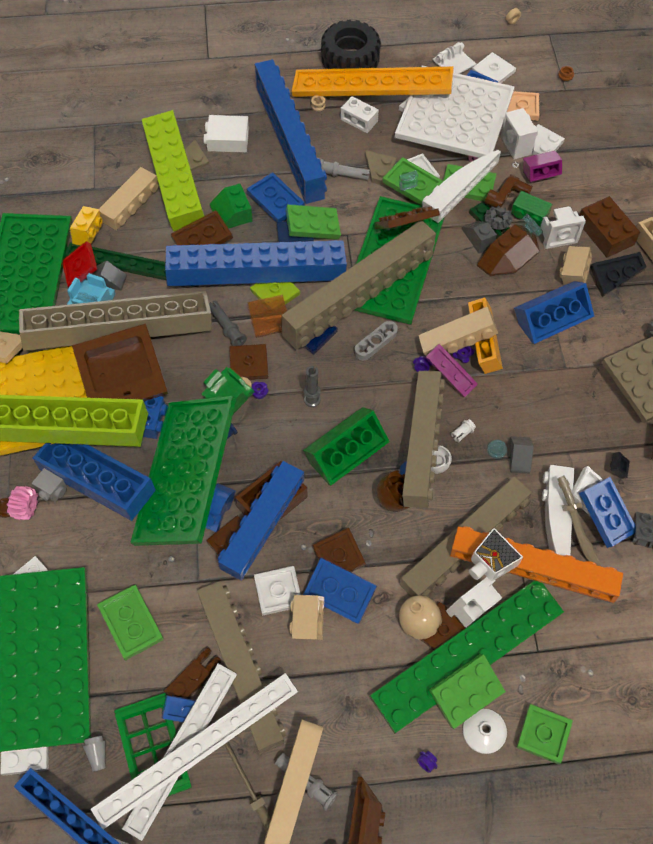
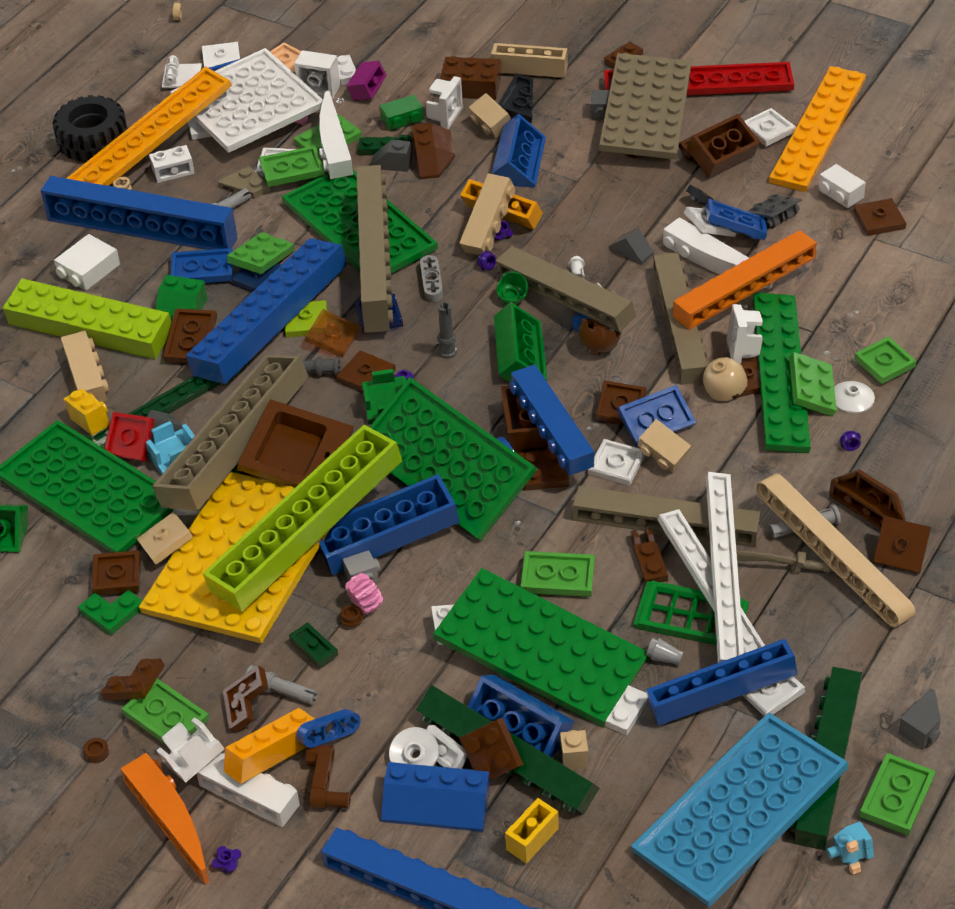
camera: 50 degrees left, 15 degrees down
(85, 297) = (179, 443): clear light blue tile -> none
(177, 708) = (673, 571): blue plate -> none
(401, 400) = (512, 288): none -> green hair
(406, 217) = (337, 180): reddish brown plate -> none
(408, 180) = (294, 162): clear light blue tile -> none
(451, 370) = (503, 239): magenta plate -> none
(494, 557) = (721, 288): torso -> none
(497, 449) = (614, 258): clear light blue plate -> none
(498, 223) = (397, 130): dark grey gear -> none
(512, 183) = (368, 122): reddish brown beam -> none
(531, 225) = (420, 118): clear light blue plate -> none
(566, 73) = (280, 16): dark orange plate -> none
(586, 546) = (714, 234): dark tan sword -> none

